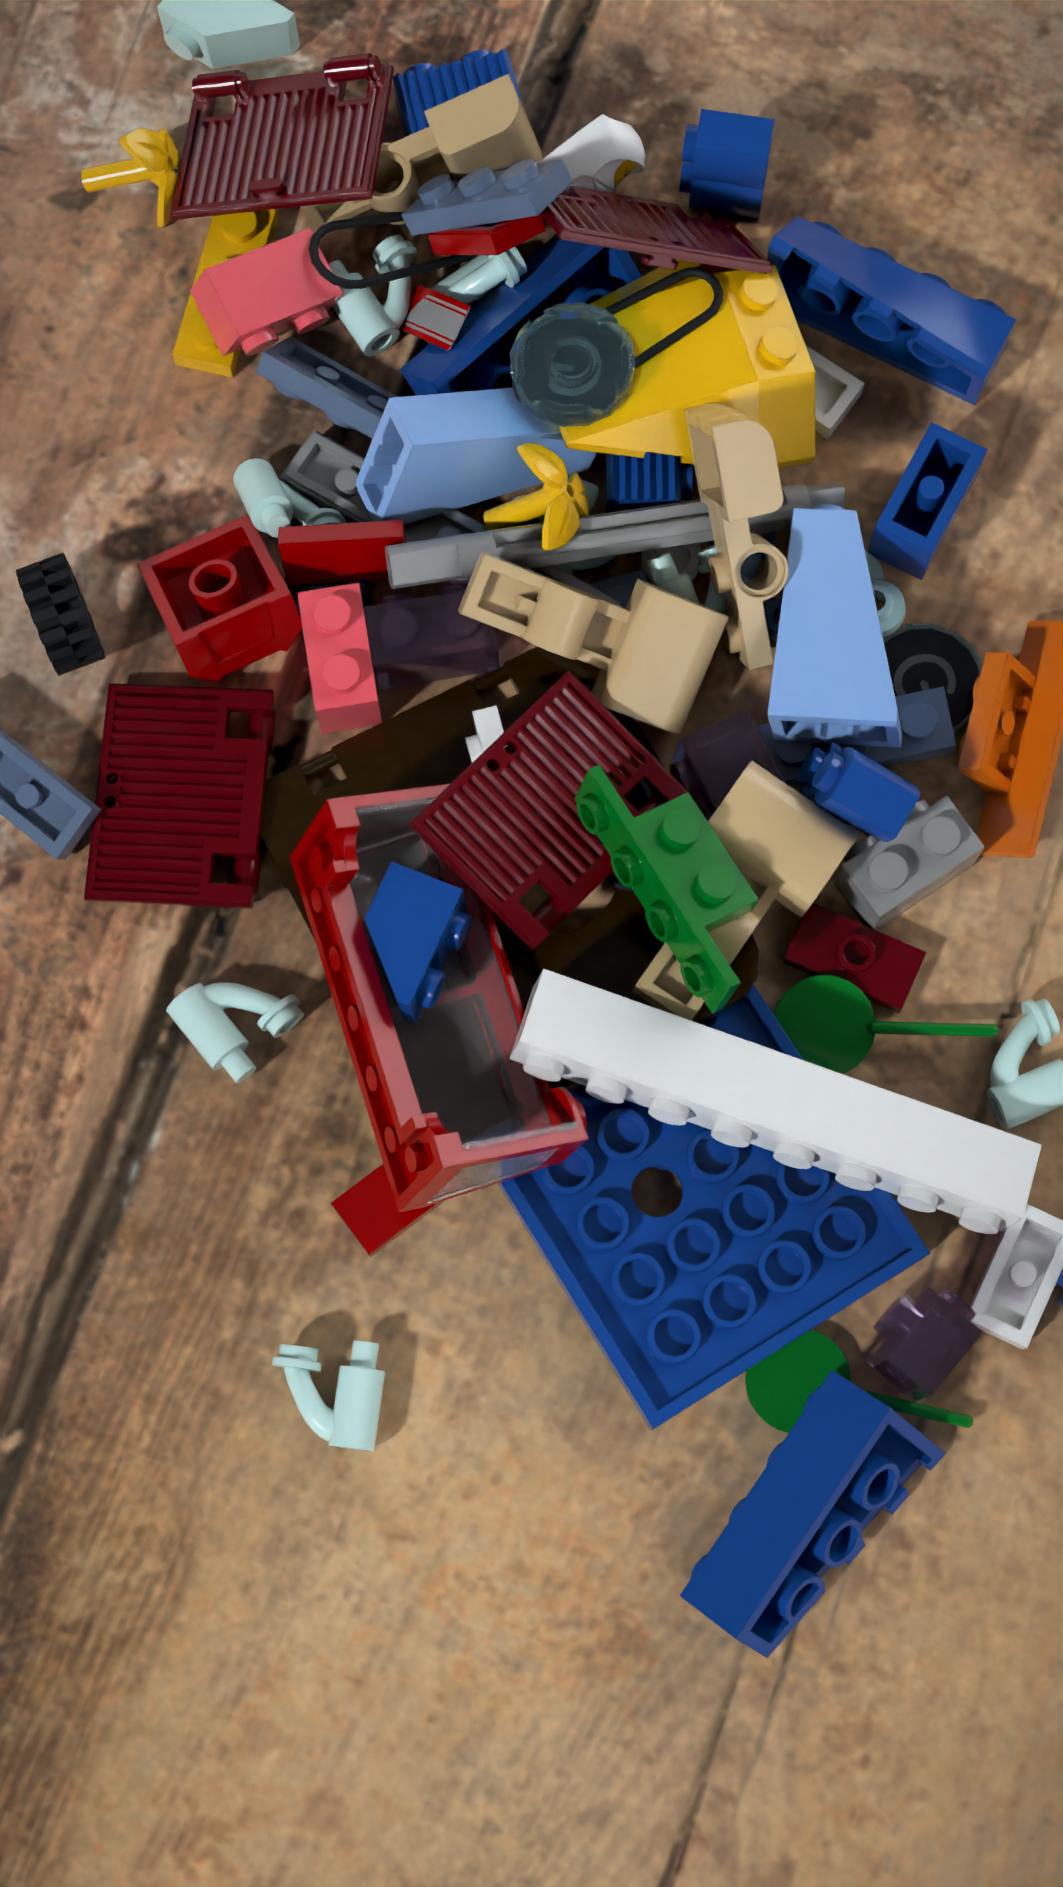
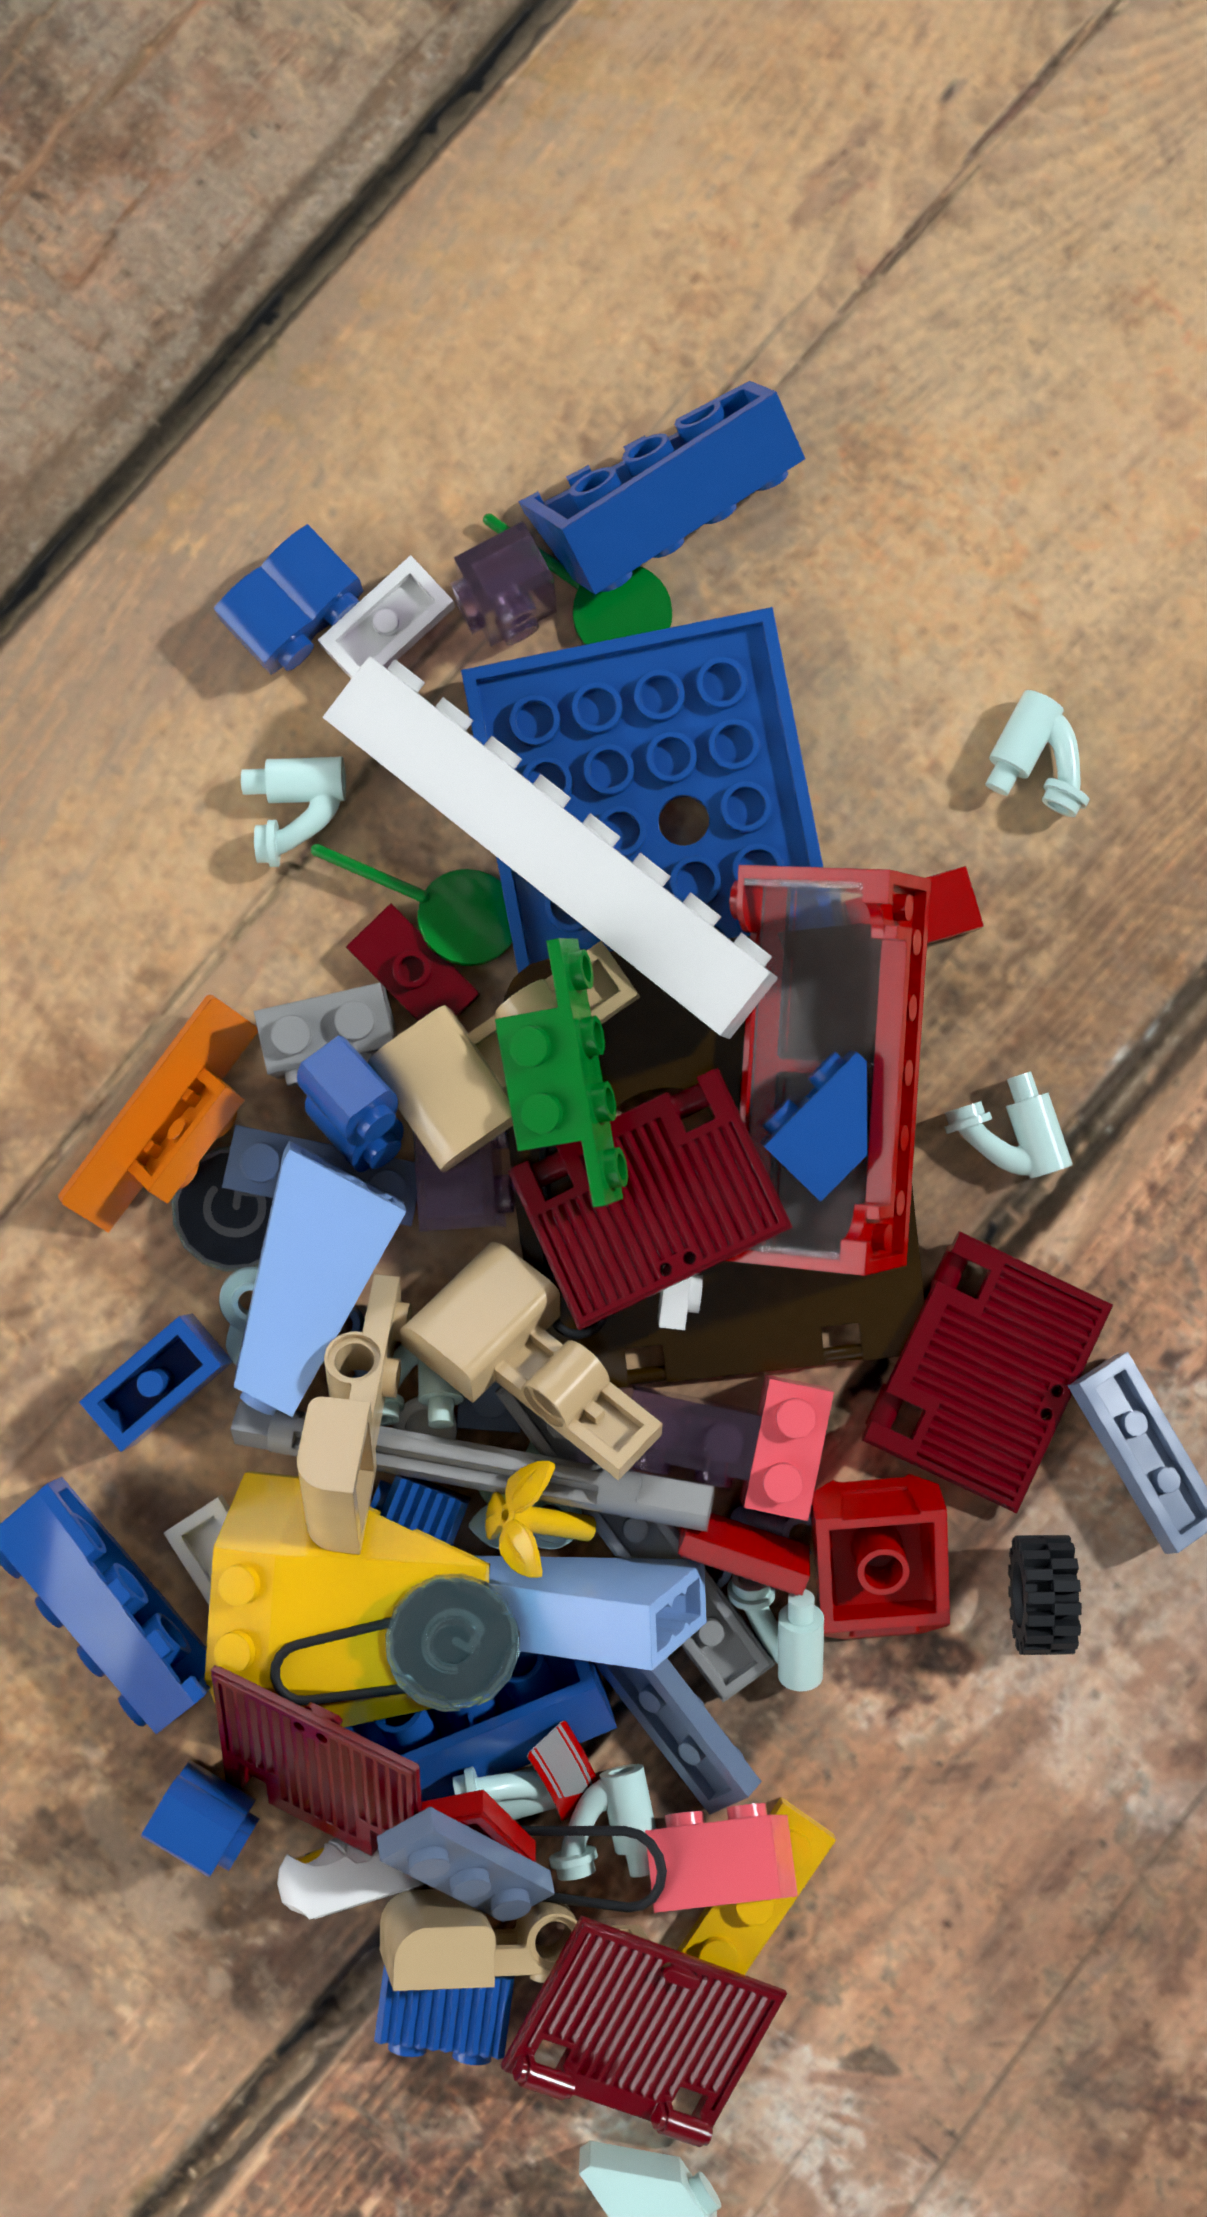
camera: 160 degrees left, 10 degrees up
(152, 159) = (794, 2069): yellow plant -> none

